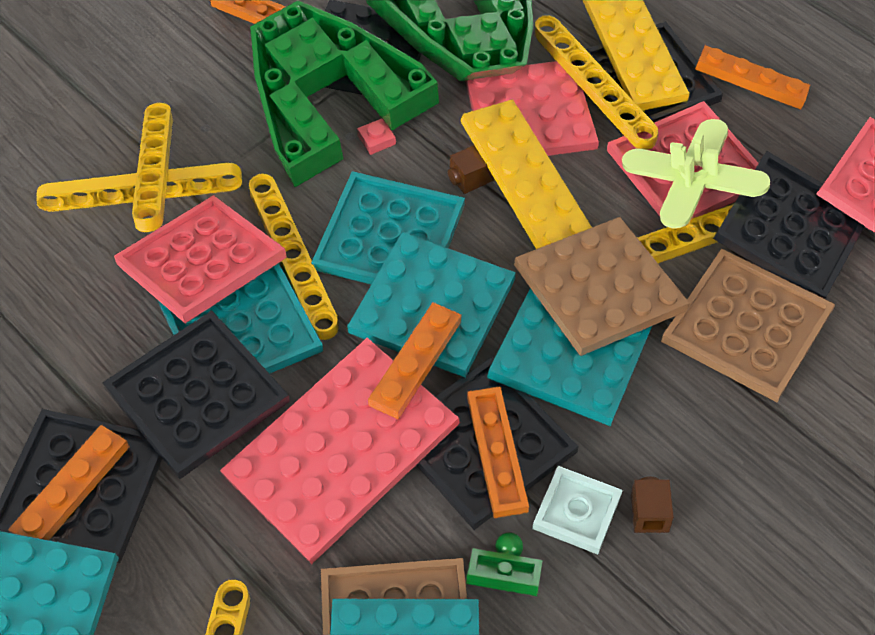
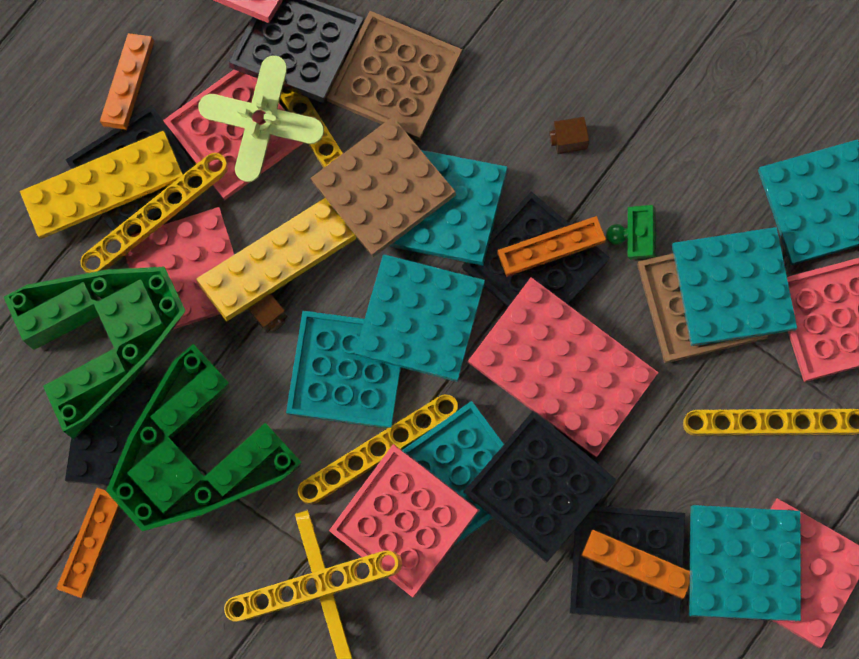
camera: 95 degrees left, 20 degrees up
(376, 136) = (234, 403): coral plate -> none
(414, 360) = (488, 315): orange plate -> none
(577, 509) = (581, 187): light aqua plate -> none

